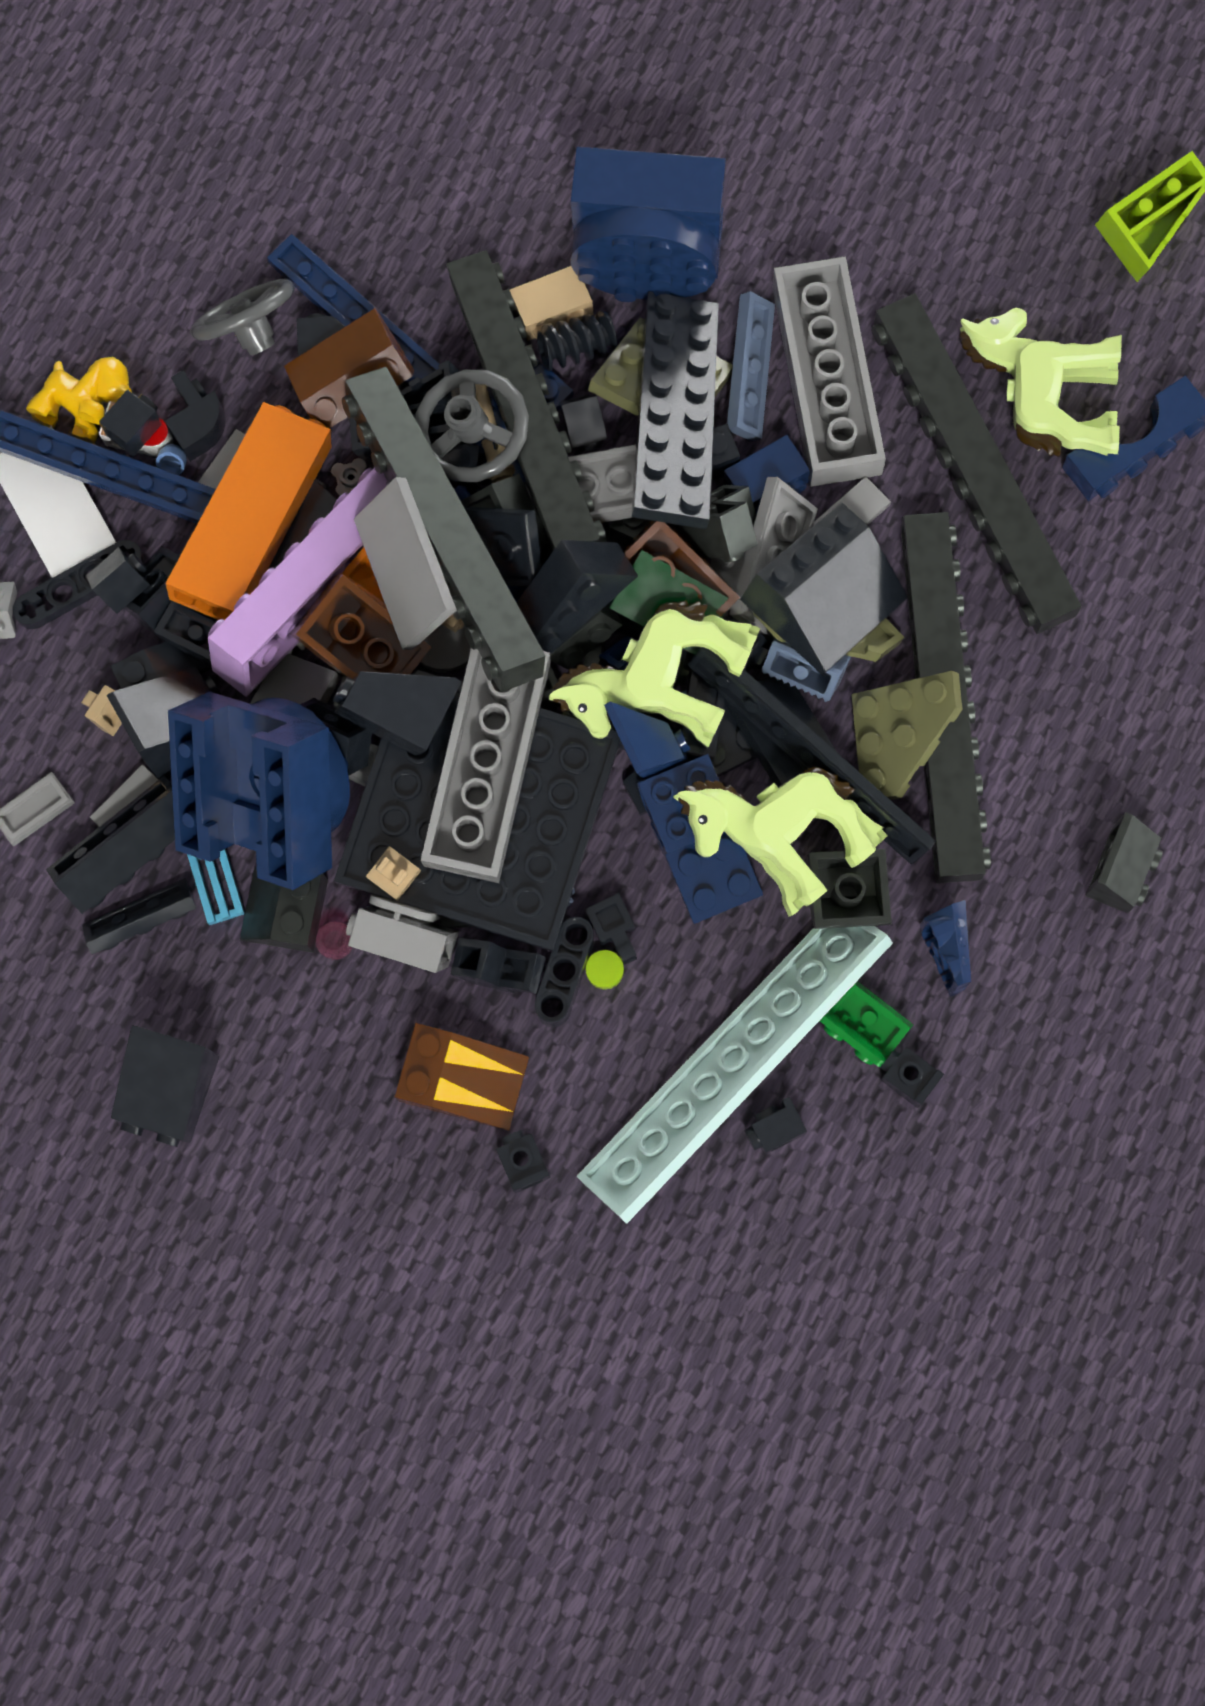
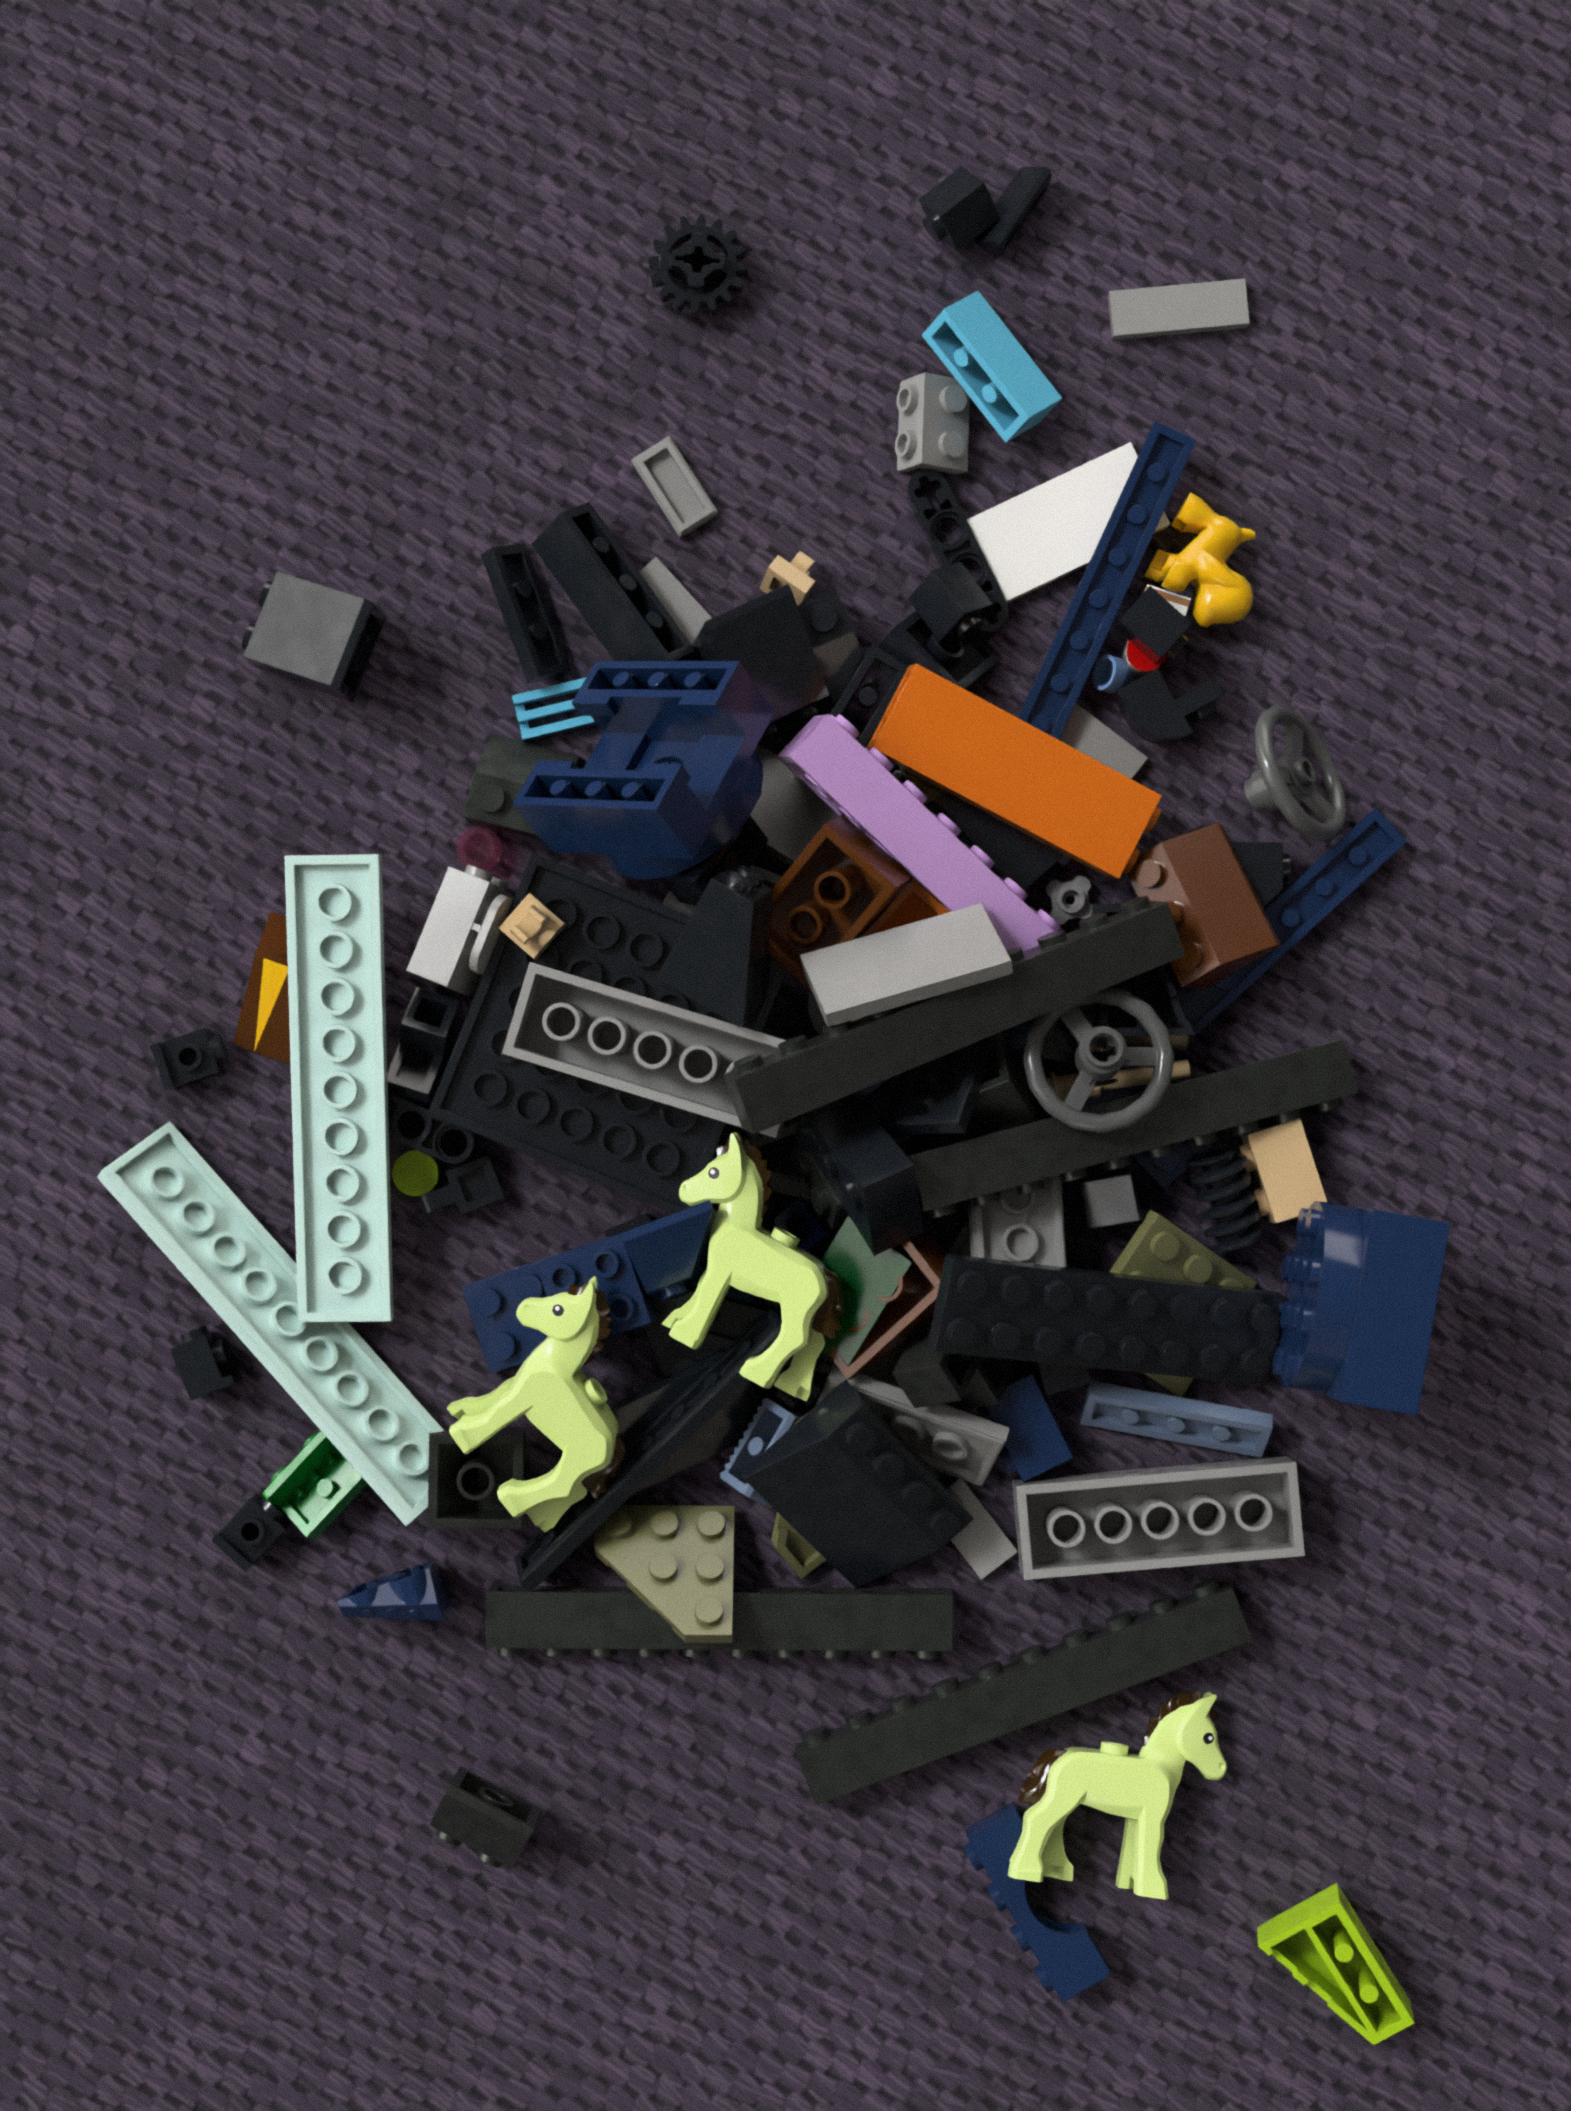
camera: 90 degrees right, 10 degrees up
(536, 1024) = (339, 1087): none -> light aqua plate

